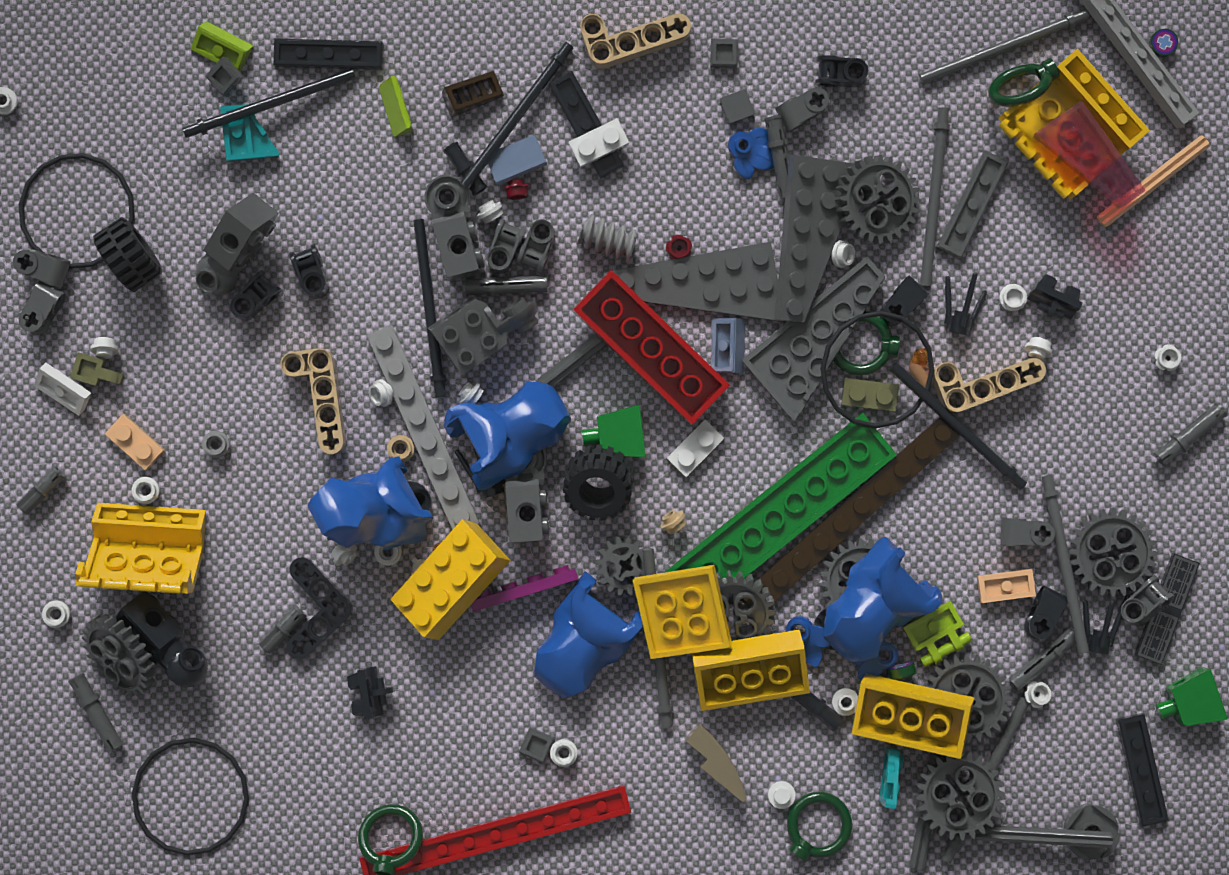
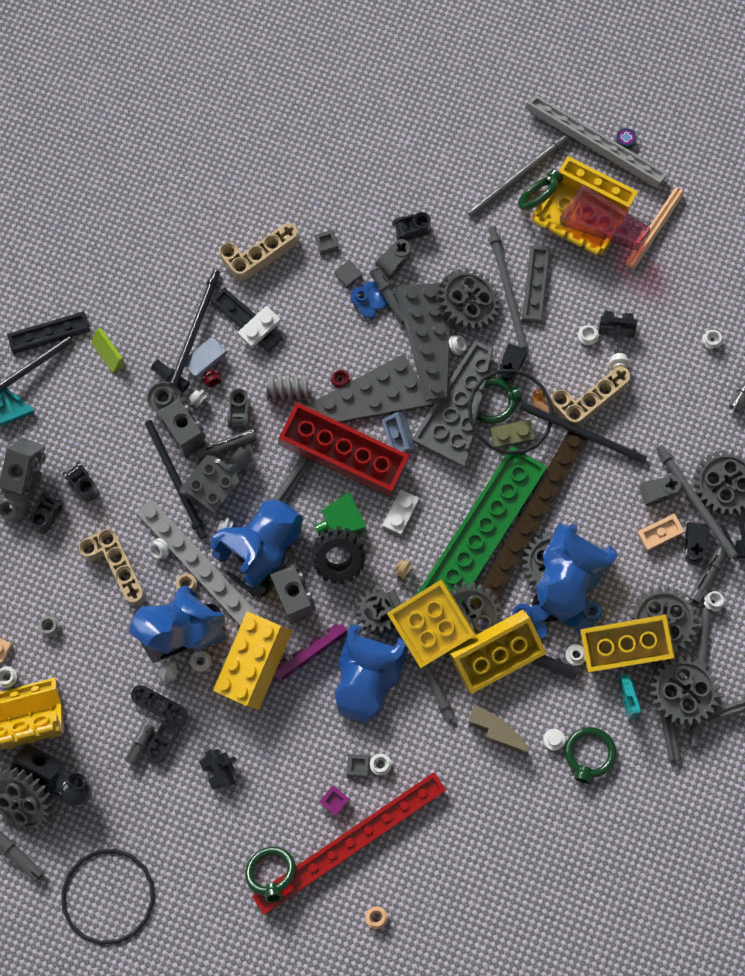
camera: 10 degrees left, 15 degrees down
(475, 102) = (147, 331): dark brown slope -> none
(494, 778) = (334, 800): none -> magenta plate
(506, 241) = (216, 415): dark grey piece -> none
(902, 670) = (608, 617): dark green tile -> none
(933, 626) = (617, 580): lime plate -> none
(961, 321) = (557, 363): black plant -> none

